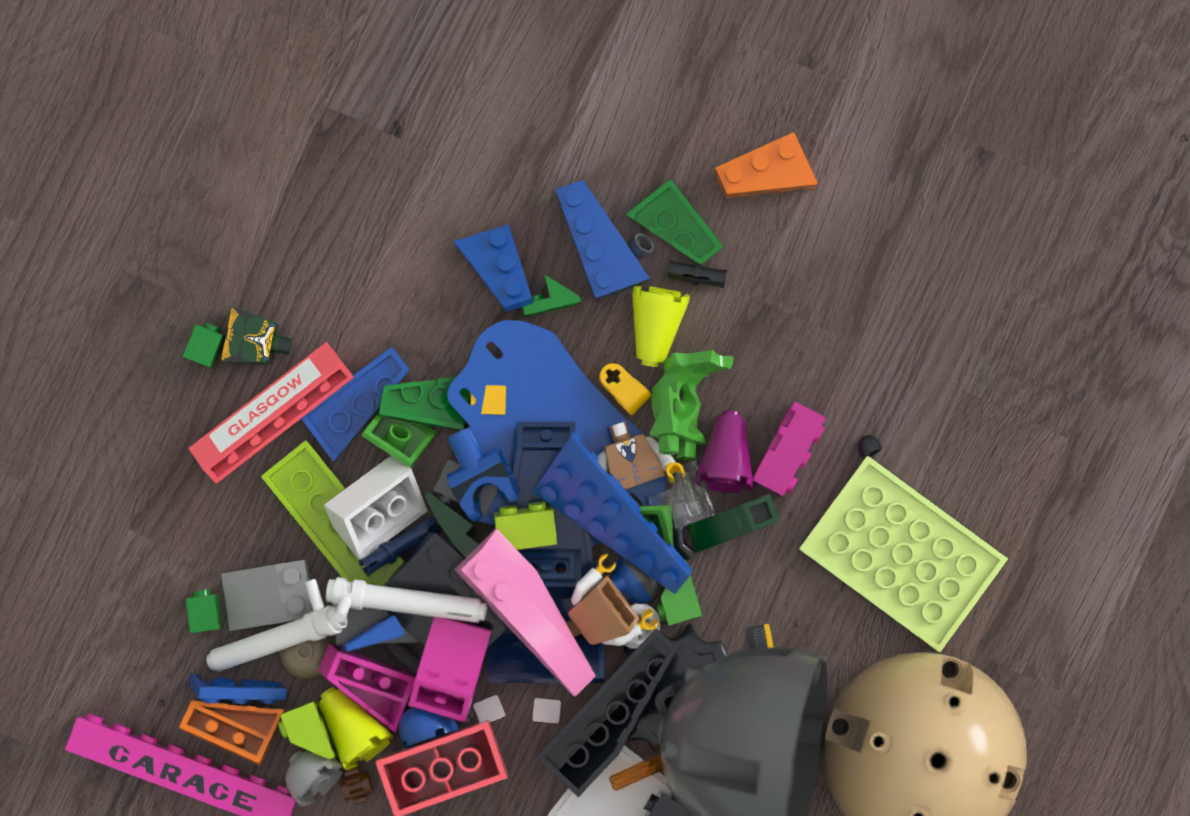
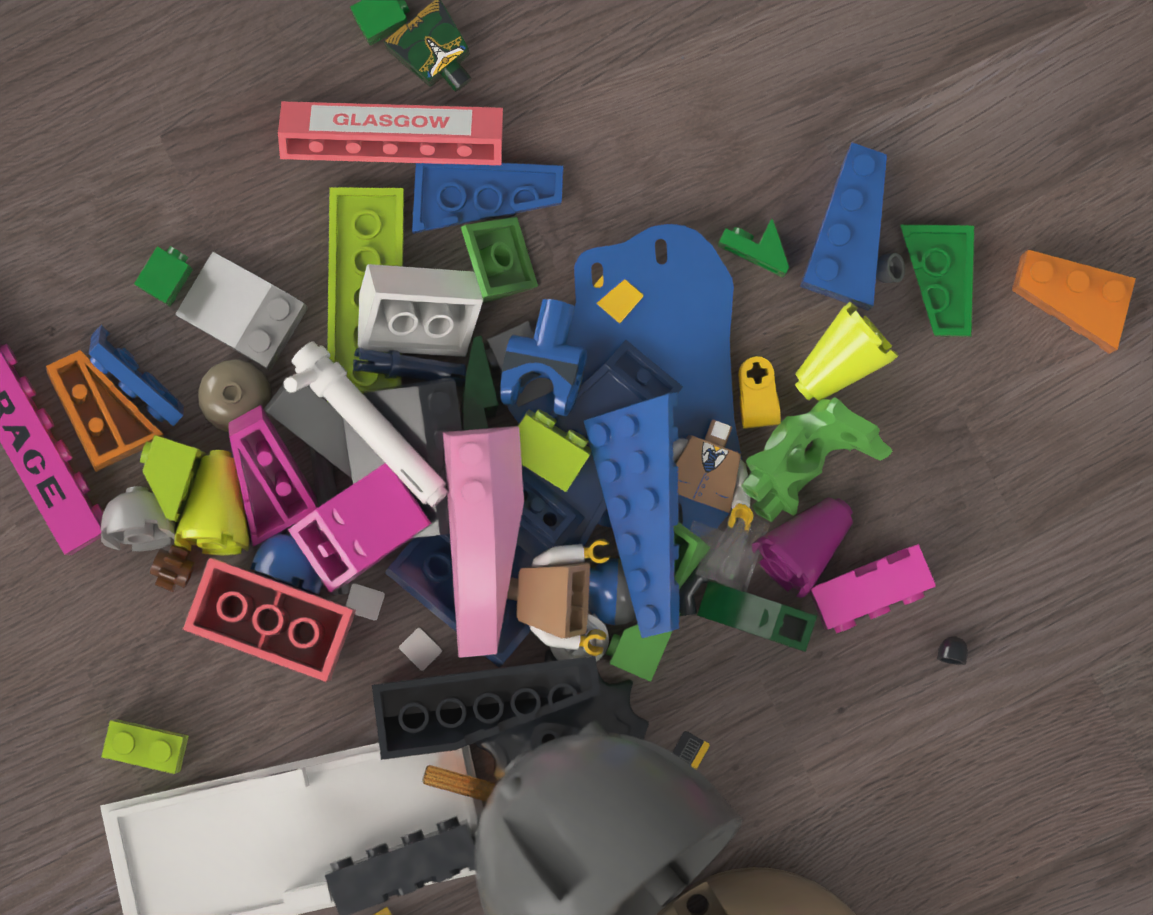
camera: 35 degrees right, 0 degrees up
(312, 627) = (258, 374): white cylinder -> none
(384, 630) = (323, 435): blue slope -> none
(422, 403) = (546, 246): green wing -> none
(498, 265) = (733, 171): blue wing -> none
(696, 274) = (922, 341): black pin -> none
(903, 554) = (900, 785): yellowish green plate -> none

